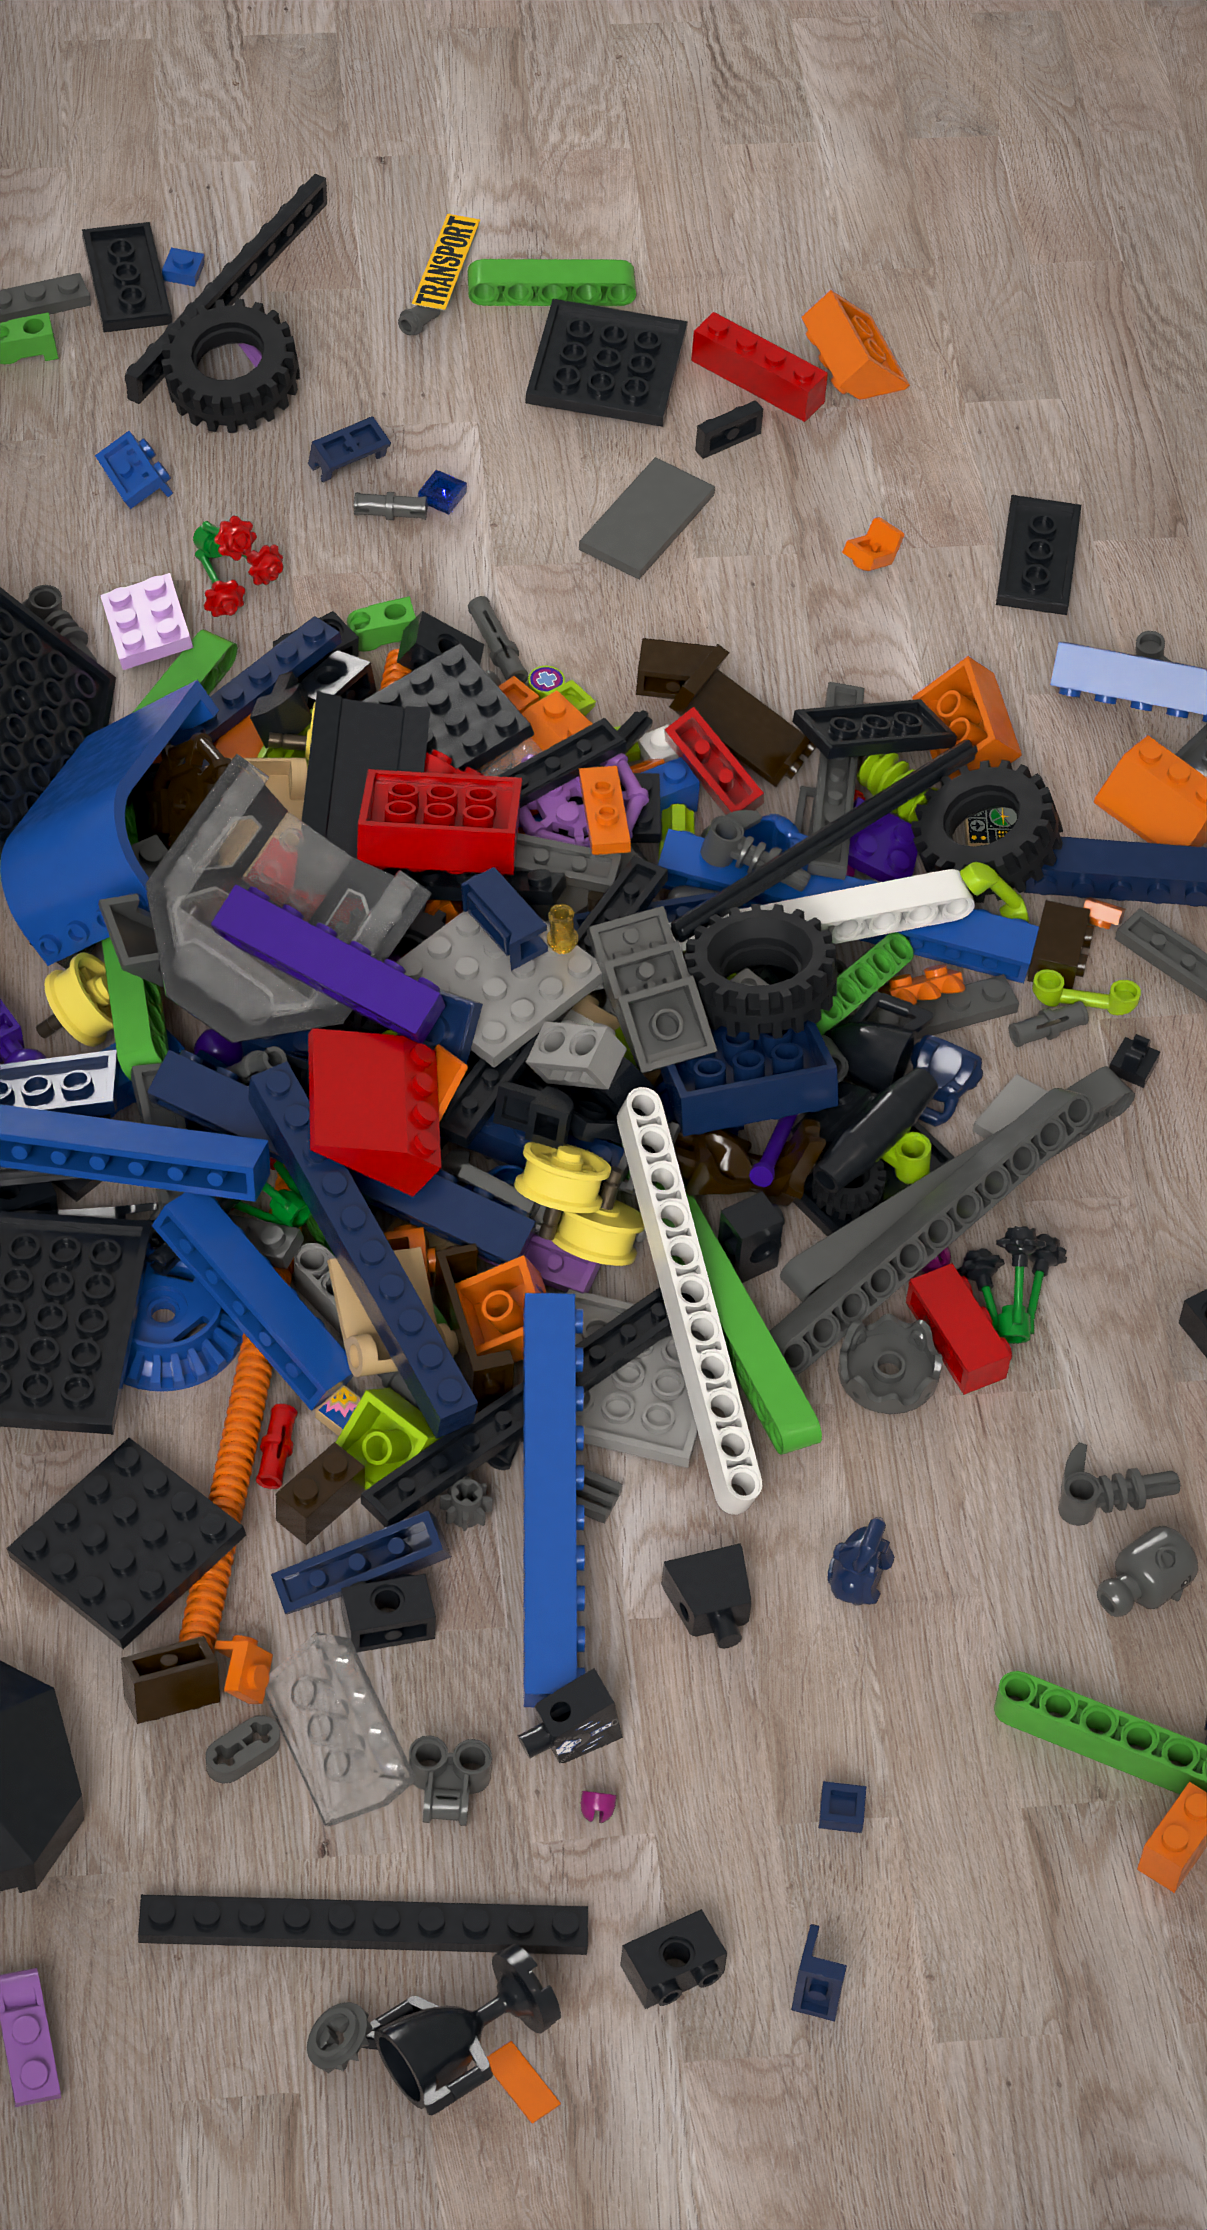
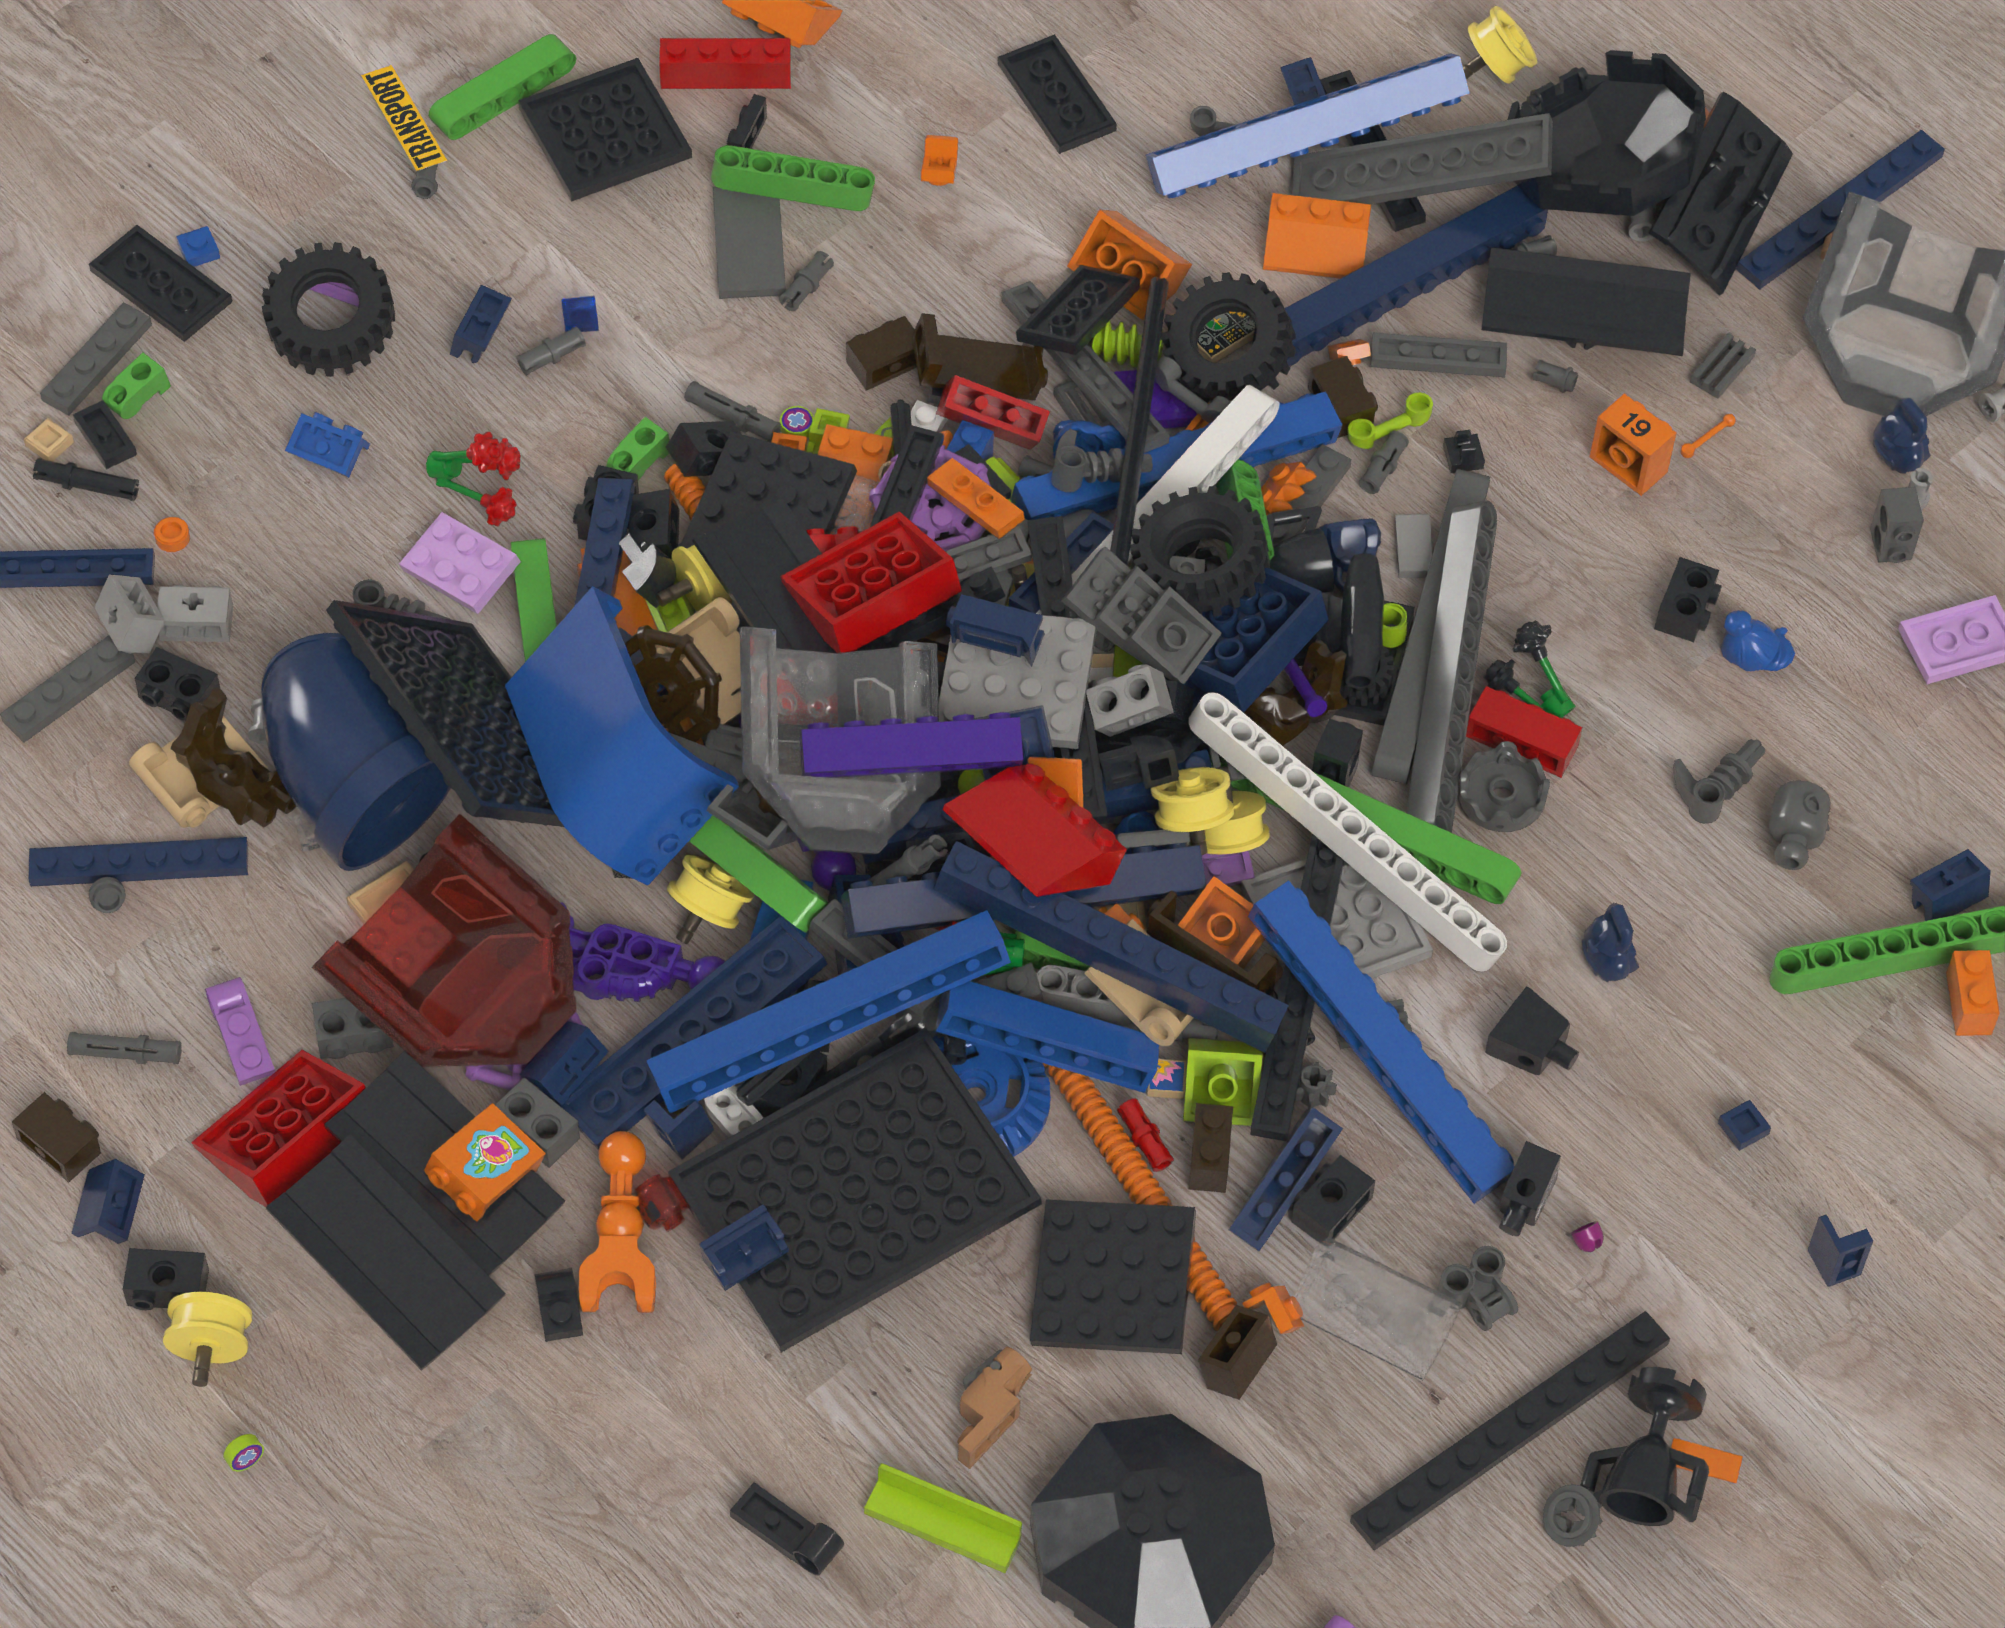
camera: 35 degrees left, 5 degrees up
(235, 277) = (254, 254): black plate -> none
(240, 1745) = (1314, 1364): dark grey beam -> none
(562, 935) = (1050, 609): clear yellow pin -> none
(664, 576) = (806, 281): none -> dark grey pin
(685, 1939) = (1739, 1287): black brick -> none
(726, 485) = (792, 178): none -> bright green beam
(904, 826) = (1166, 376): none -> dark grey bar
(982, 877) = (1270, 379): lime bar -> none

